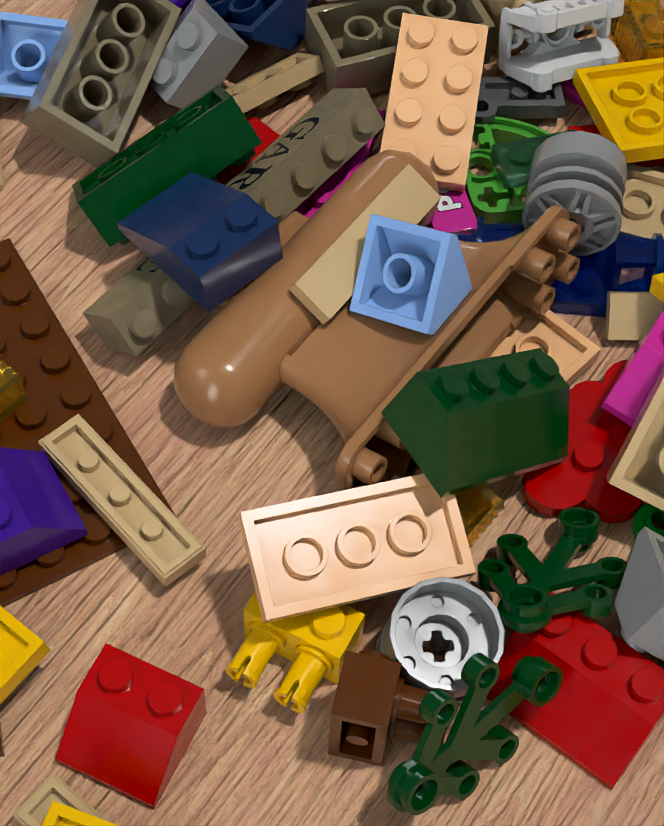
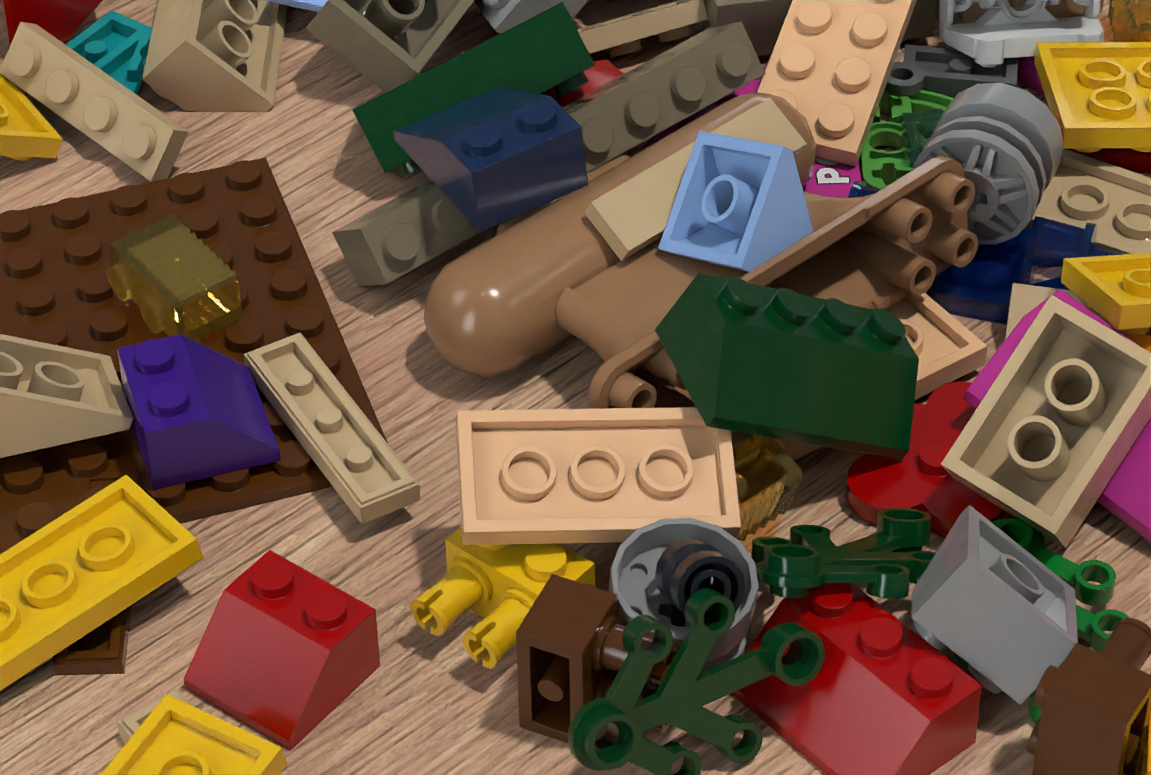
camera: 15 degrees right, 15 degrees down
(458, 634) = (689, 567): none -> black wheel

